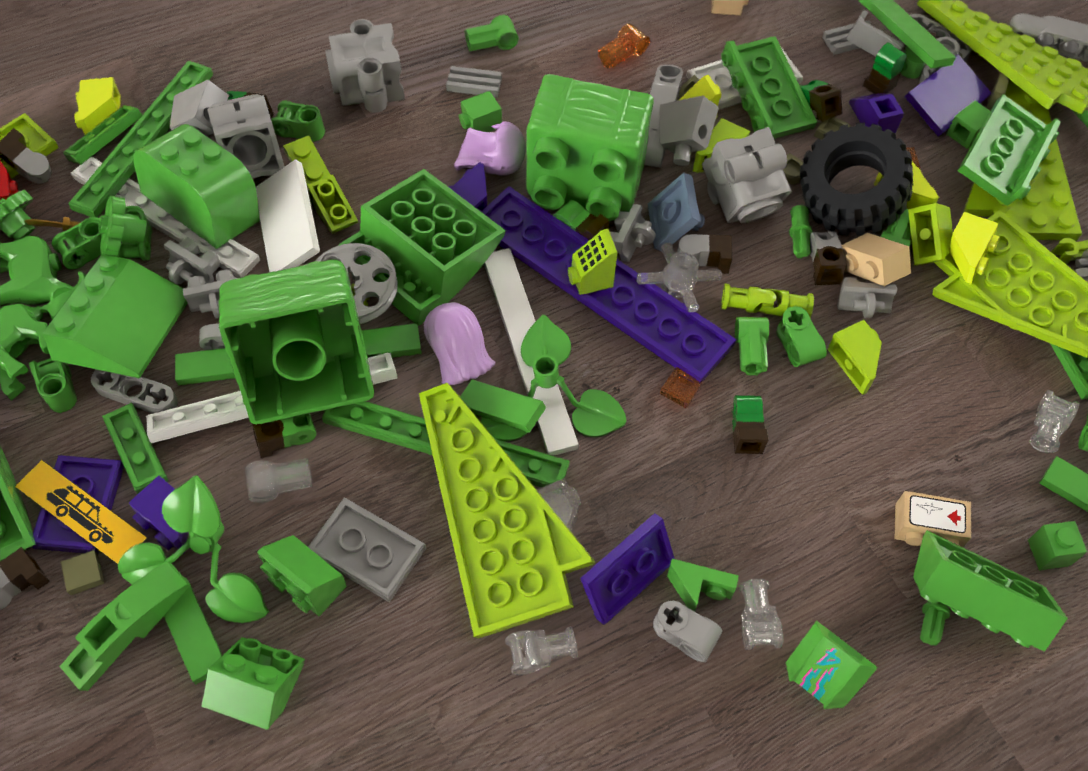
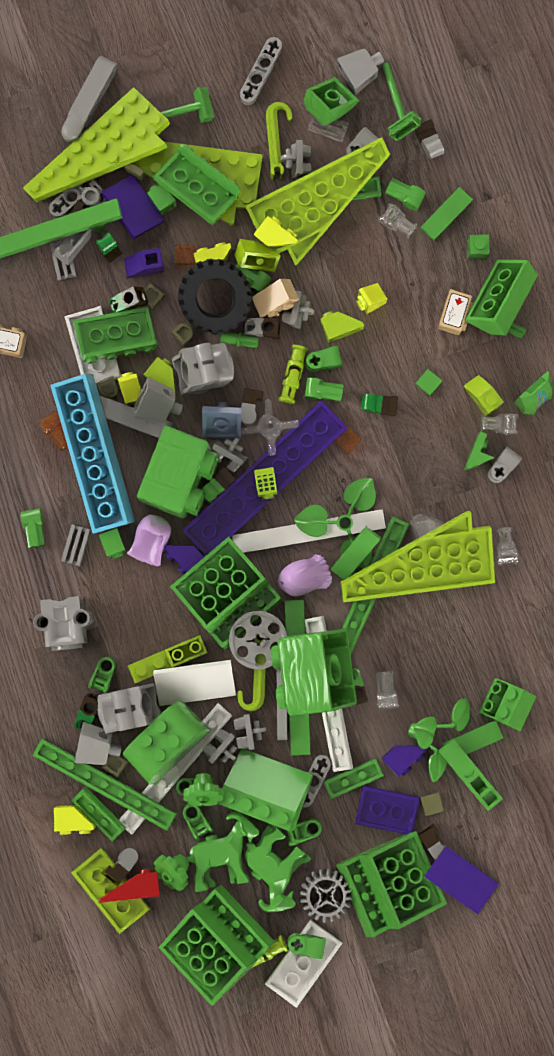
camera: 80 degrees left, 25 degrees up
(67, 223) = (180, 832): pearl gold piece -> none
(79, 511) = (395, 807): yellow sticker -> none
(302, 574) = (451, 676): bright green slope -> none
(367, 549) = (434, 640): light grey tile -> none
(620, 61) = (92, 453): none -> medium azure brick
(628, 569) = (470, 491): dark purple tile -> none
(800, 585) = (483, 395): none -> lime slope
(802, 496) = (428, 382): none -> bright green tile
(917, 387) = (371, 298): none -> neon yellow slope

